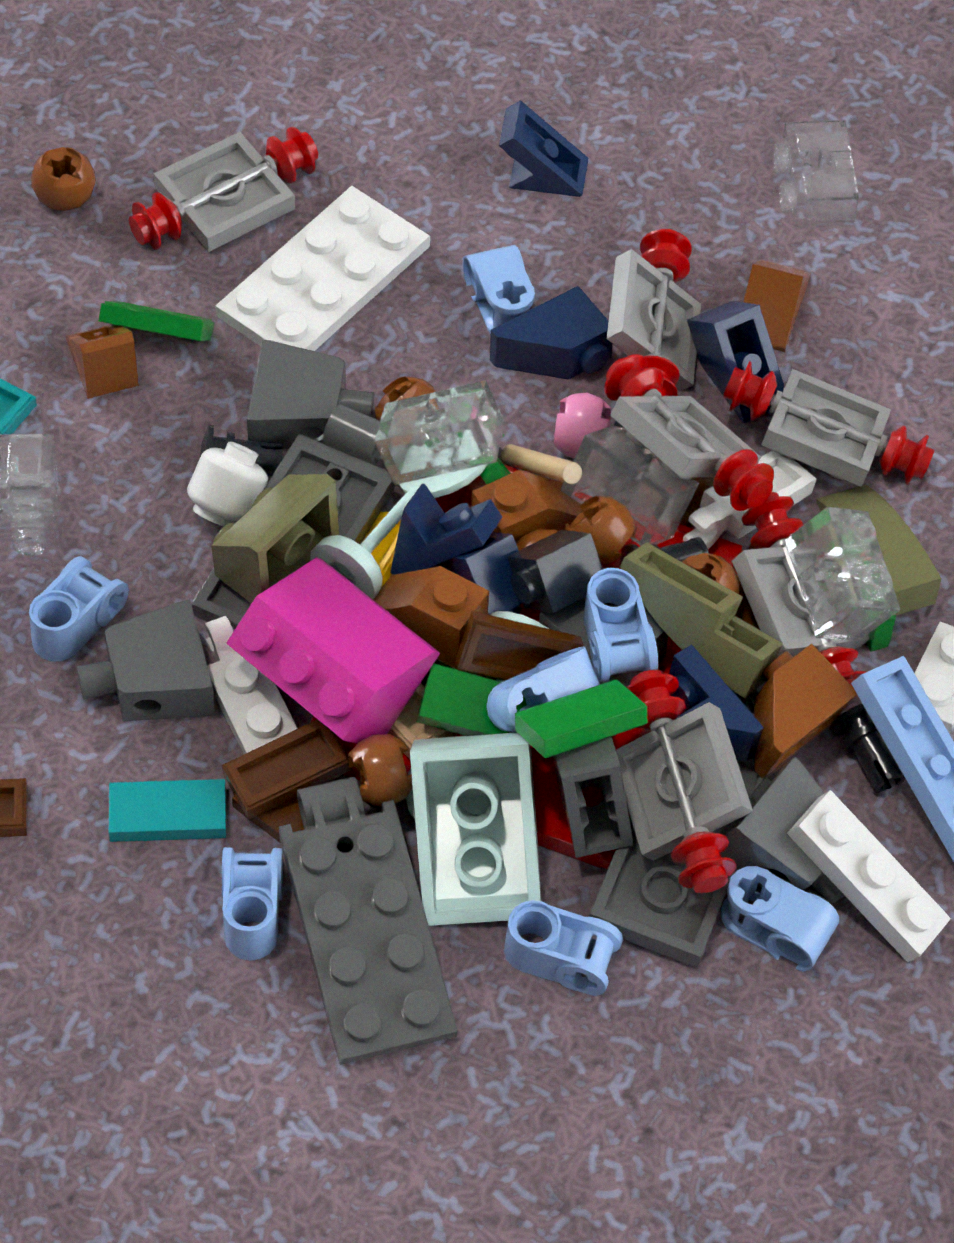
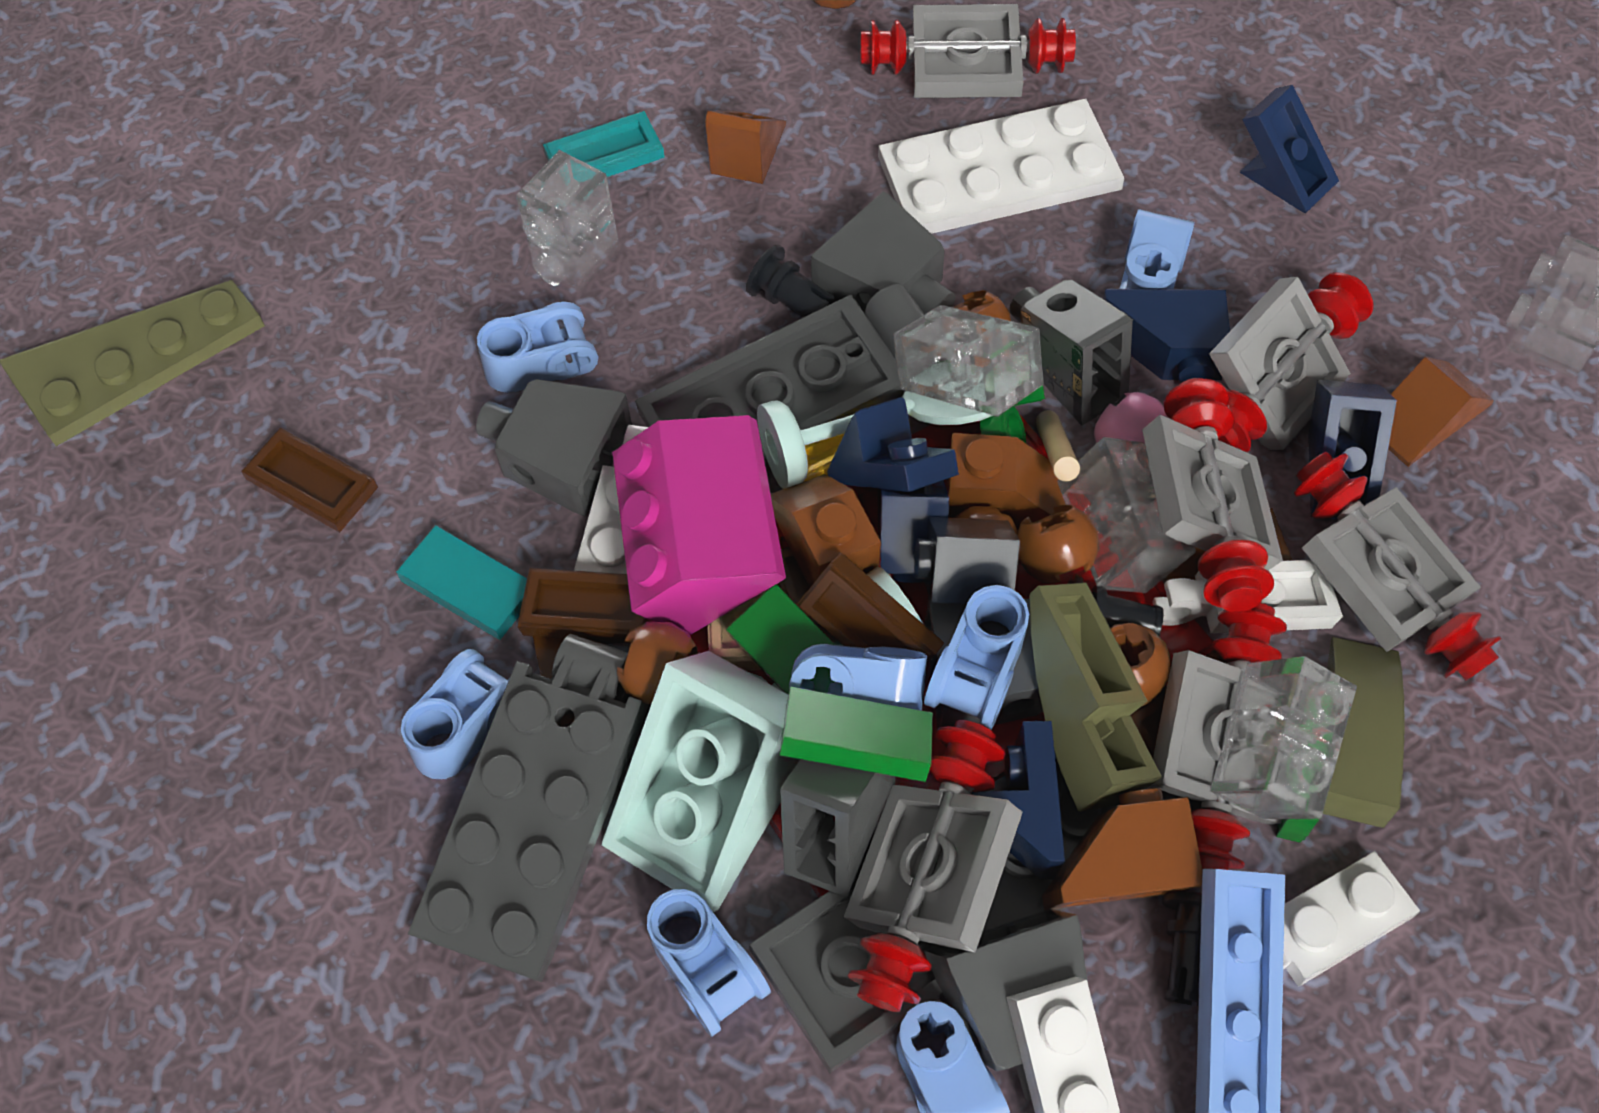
camera: 40 degrees right, 5 degrees up
(156, 320) = (814, 132): green tile -> none
(226, 483) = (750, 305): white head -> none
(276, 533) = (740, 373): olive slope -> none
(514, 373) = (1081, 346): none -> dark grey torso

